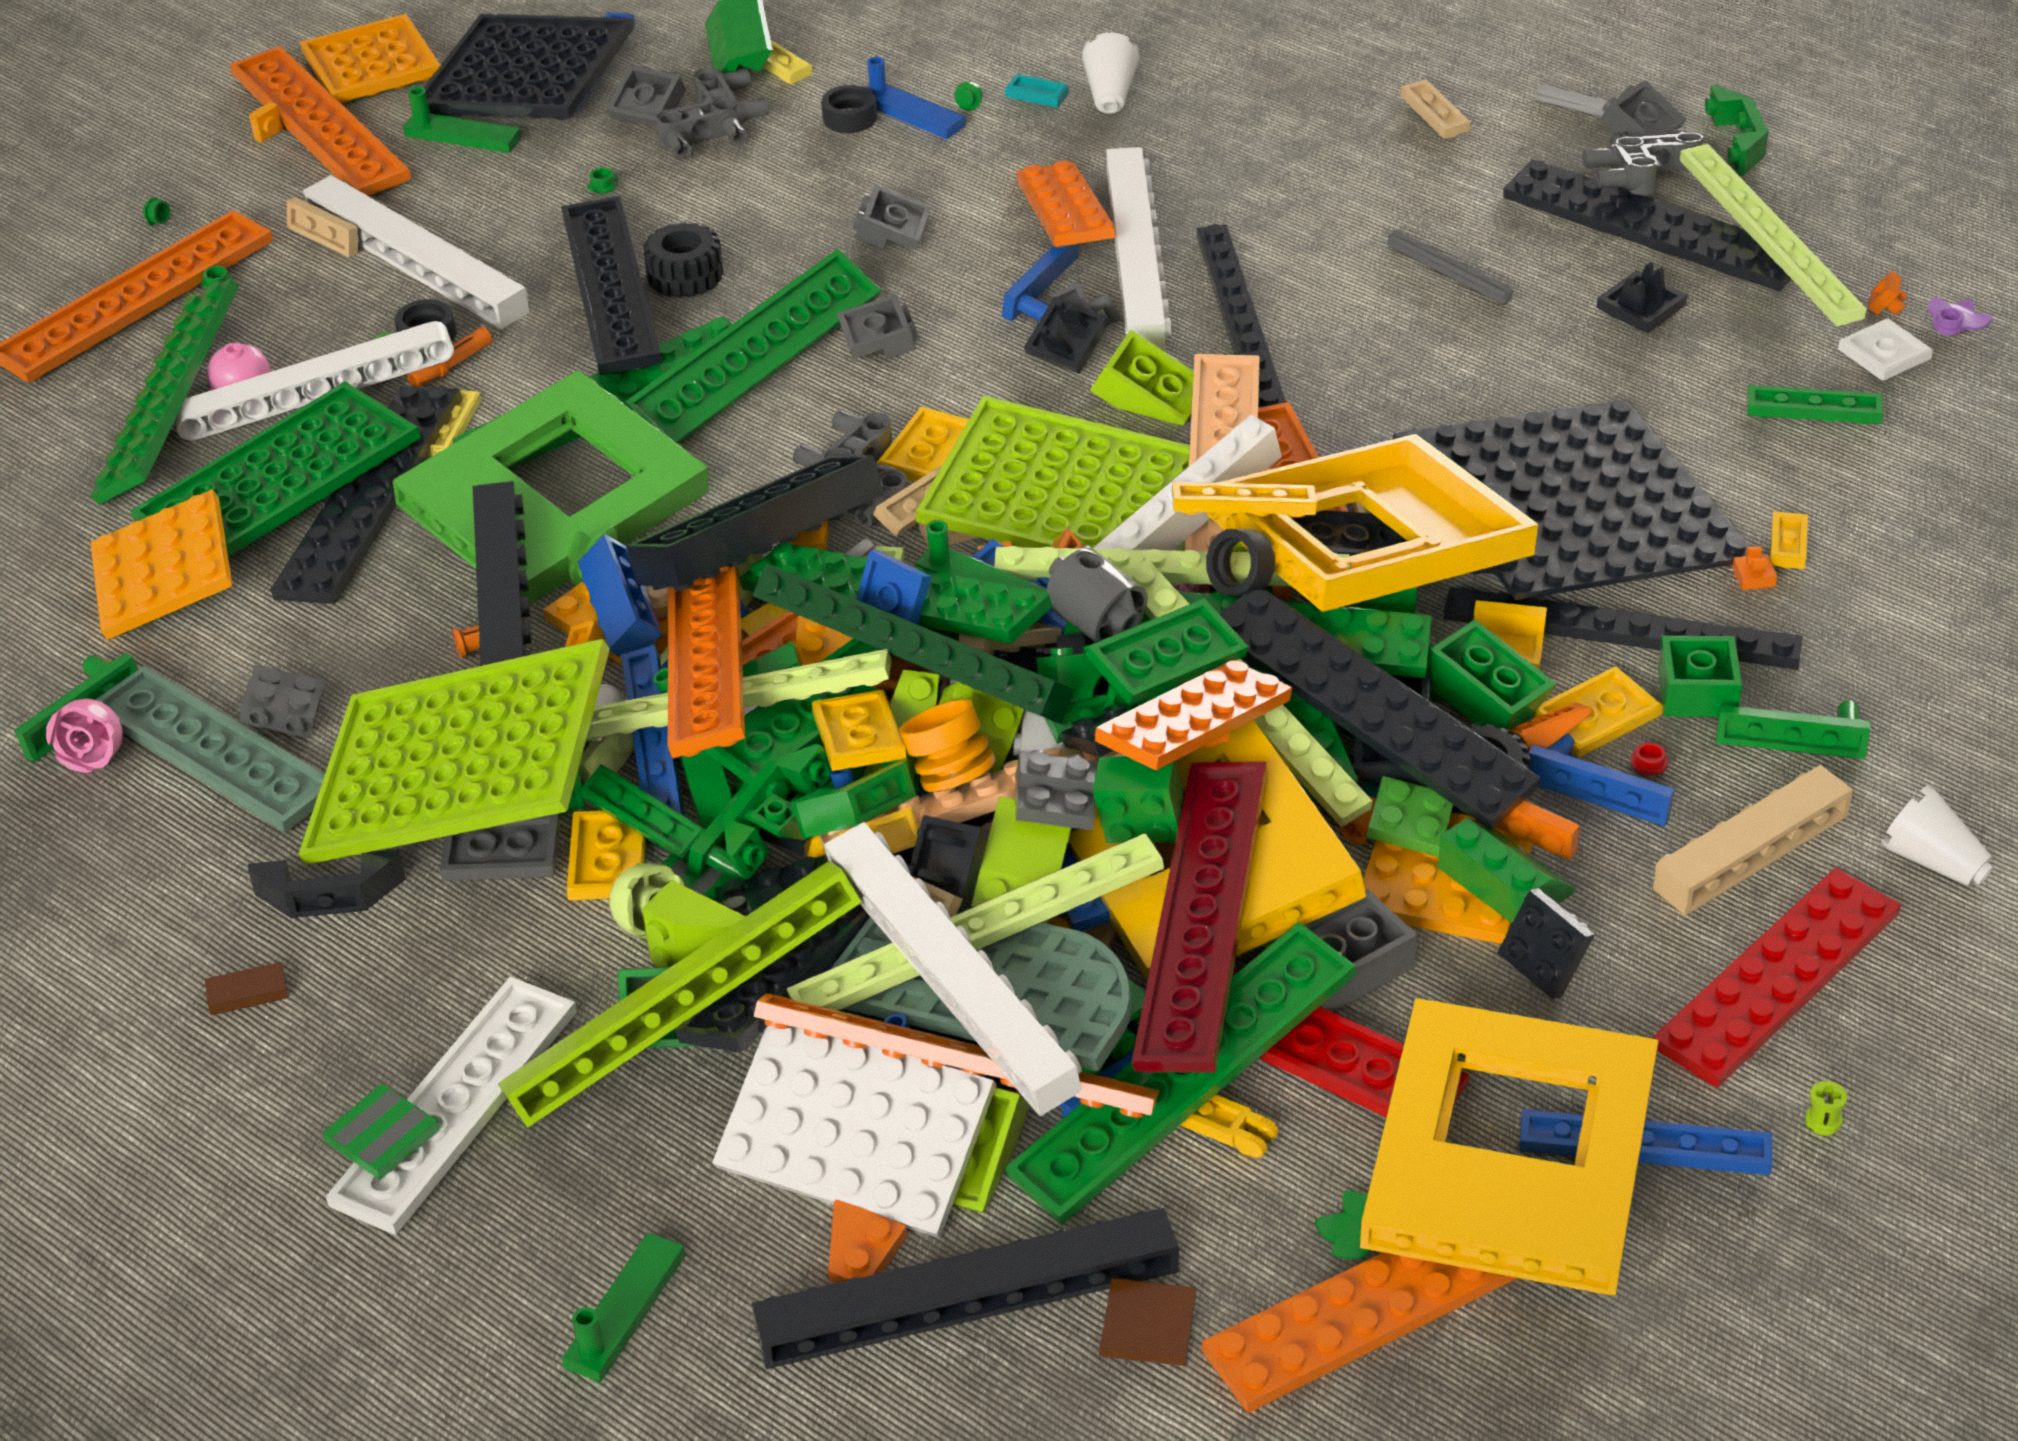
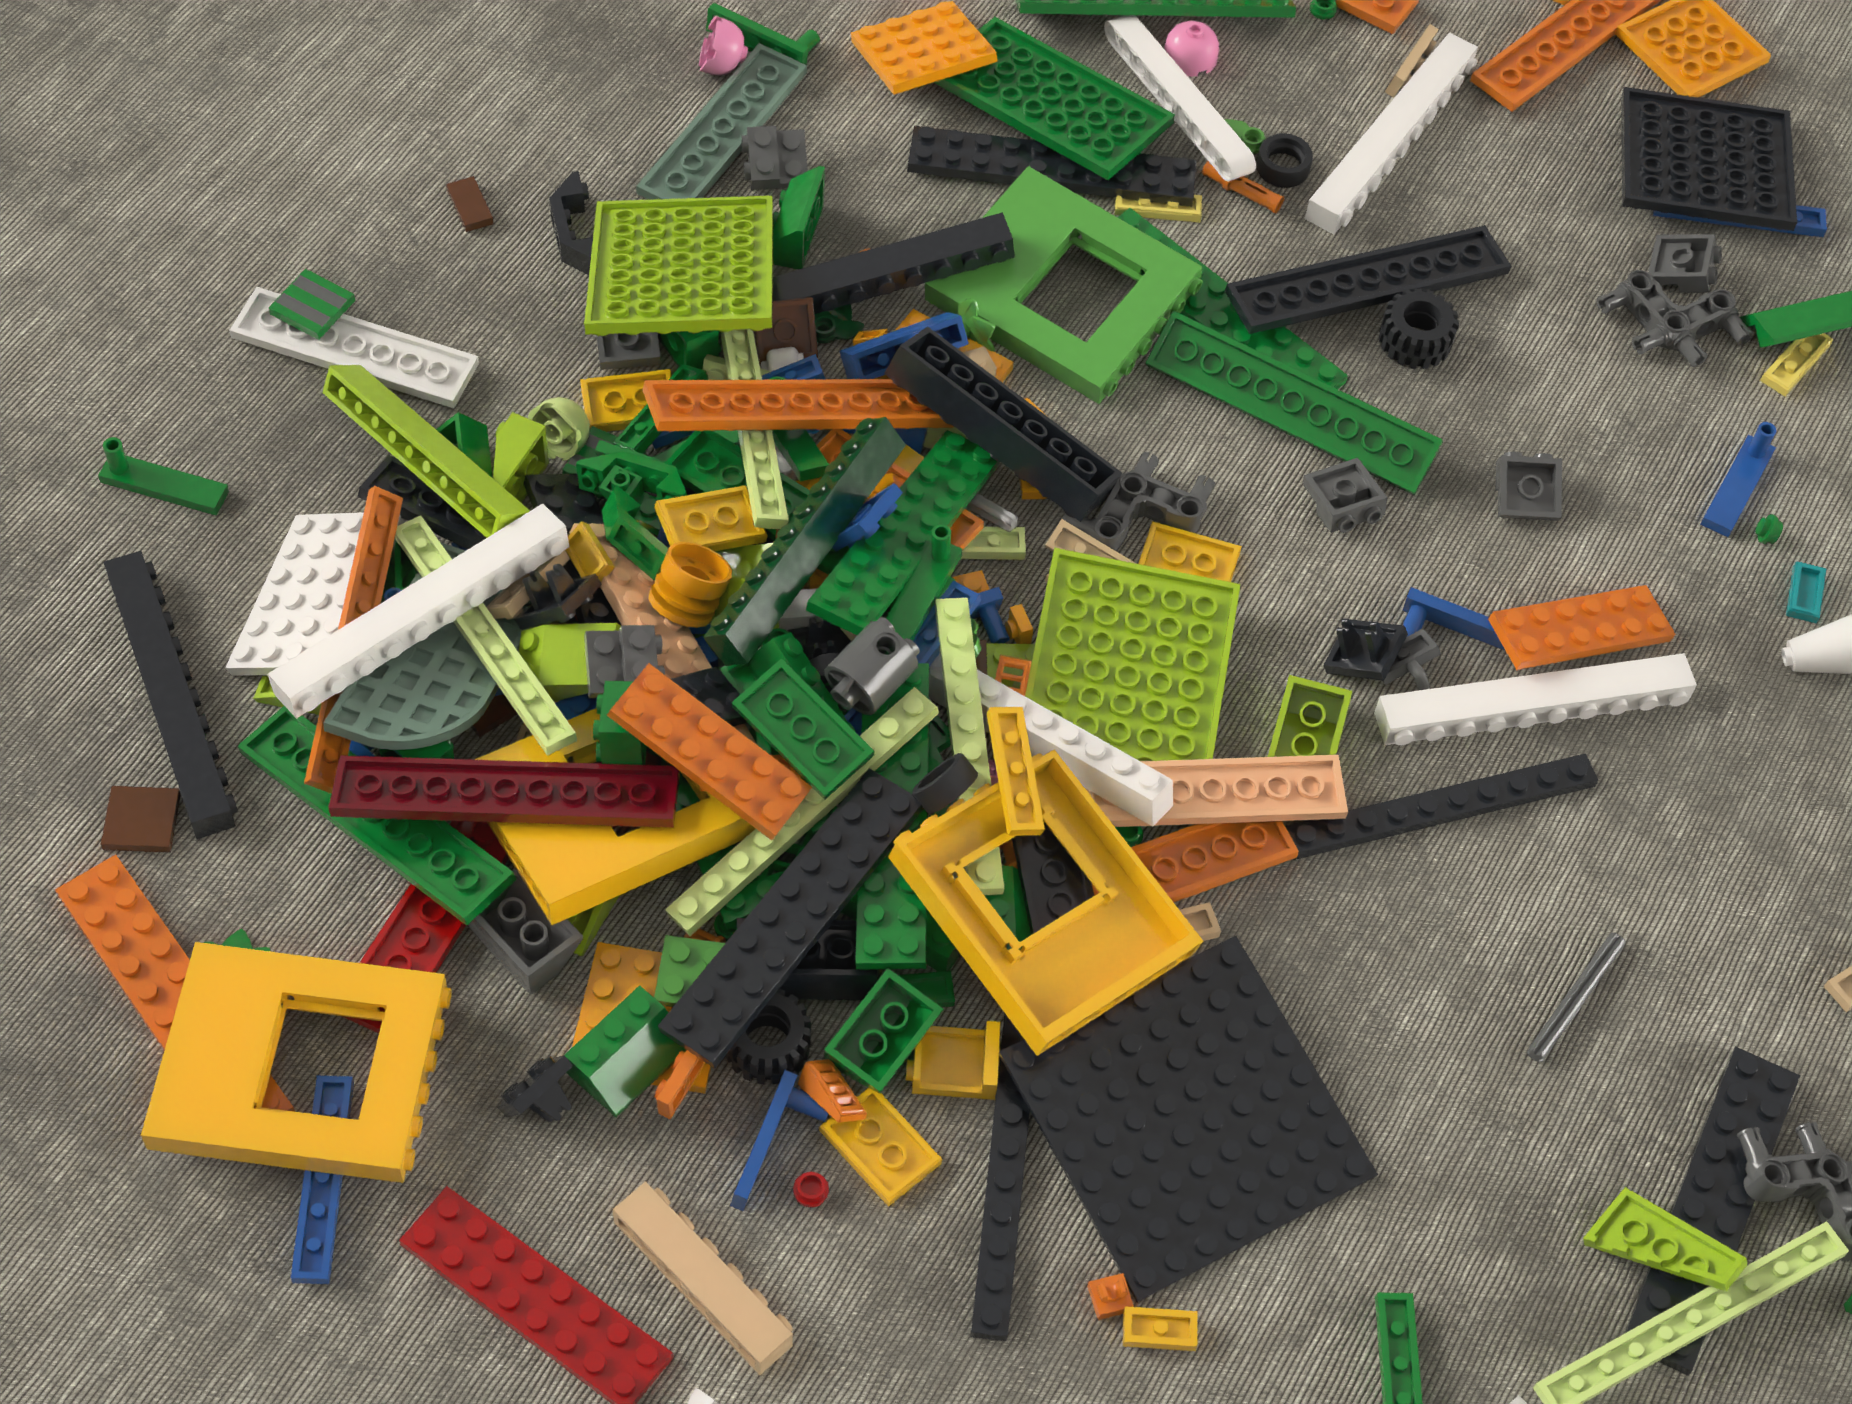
camera: 75 degrees right, 15 degrees up
(376, 662) = (798, 218): none -> green slope
(456, 130) = (1598, 130): green piece -> none
(602, 180) = (1542, 252): green plate -> none
(849, 97) = (1720, 413): black tyre -> none
(861, 1242) = (216, 621): orange wing -> none
(1226, 1123) = (340, 856): yellow hinge -> none
(1642, 299) = (1551, 1188): black plate -> none
(1698, 675) = (919, 1228): green brick -> none
(1699, 238) = (1658, 1239): none -> lime wing
(1796, 732) = (855, 1370): green piece -> none
(1836, 1102) = (351, 1322): lime bush -> none

